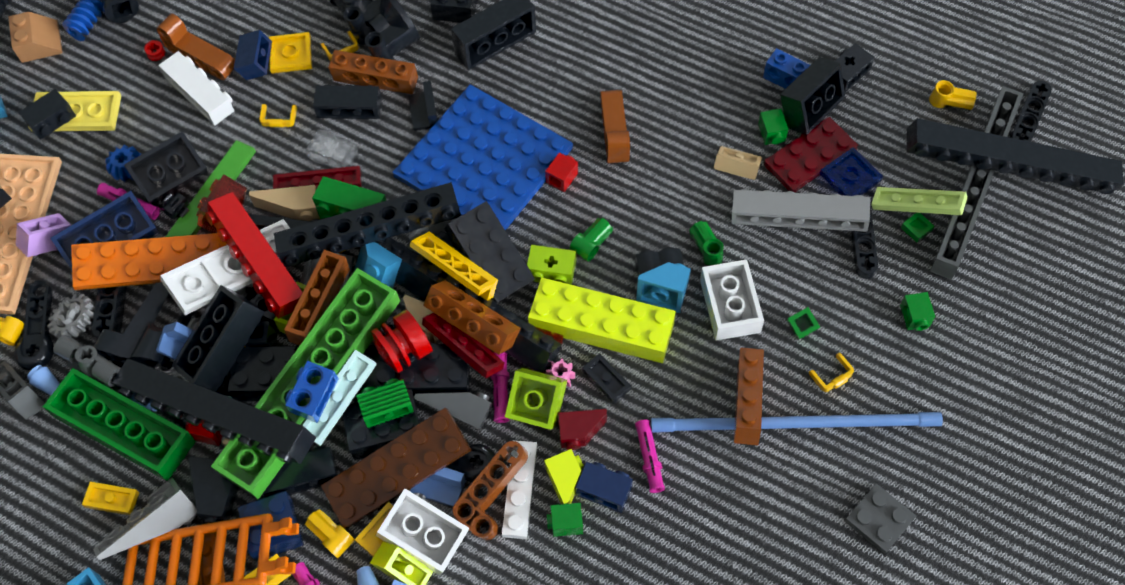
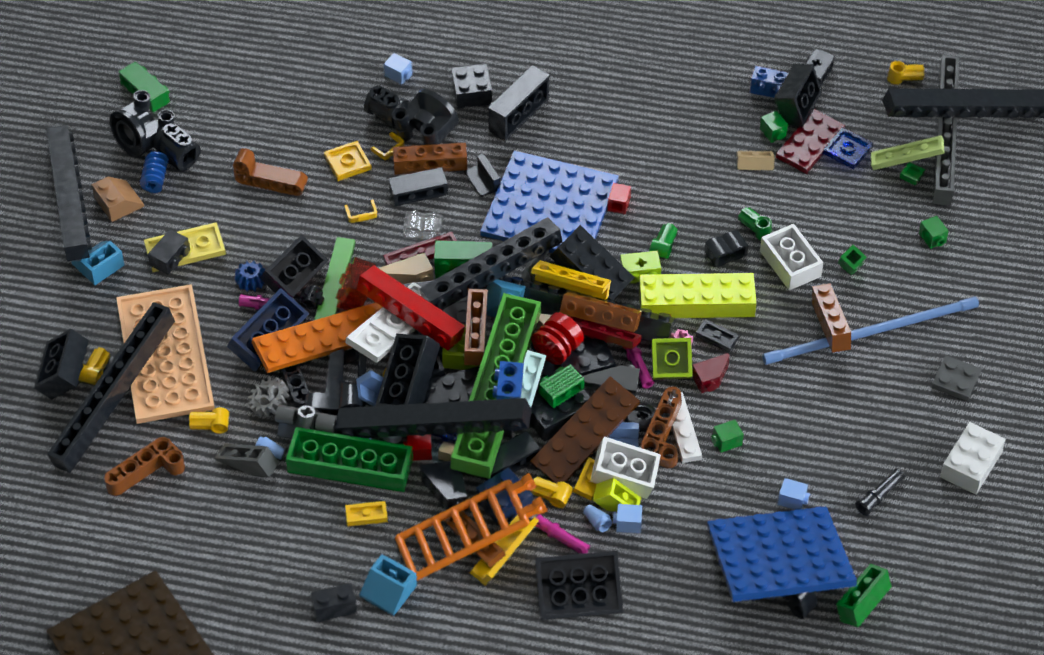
camera: 20 degrees left, 10 degrees down
(35, 234) = (214, 341): lavender brick -> none
(35, 329) = (240, 415): black beam -> none
(152, 45) = (224, 187): red bush -> none
(166, 511) = (411, 511): light grey wedge -> none
(197, 88) = (282, 205): white brick -> none
(253, 55) = (320, 168): dark blue brick -> none
(564, 474) = (712, 406): neon yellow slope -> none
(604, 486) = (746, 407): dark blue brick -> none
(614, 124) = (653, 164): dark orange beam -> none
(655, 482) = (769, 376): dark pink pin -> none
(664, 286) = (737, 256): dark azure slope -> none
(801, 210) = (819, 181): light grey brick -> none
(838, 381) = (891, 296): yellow piece -> none
(860, 256) = (870, 192): black beam -> none
(1032, 115) = (970, 73): black beam -> none

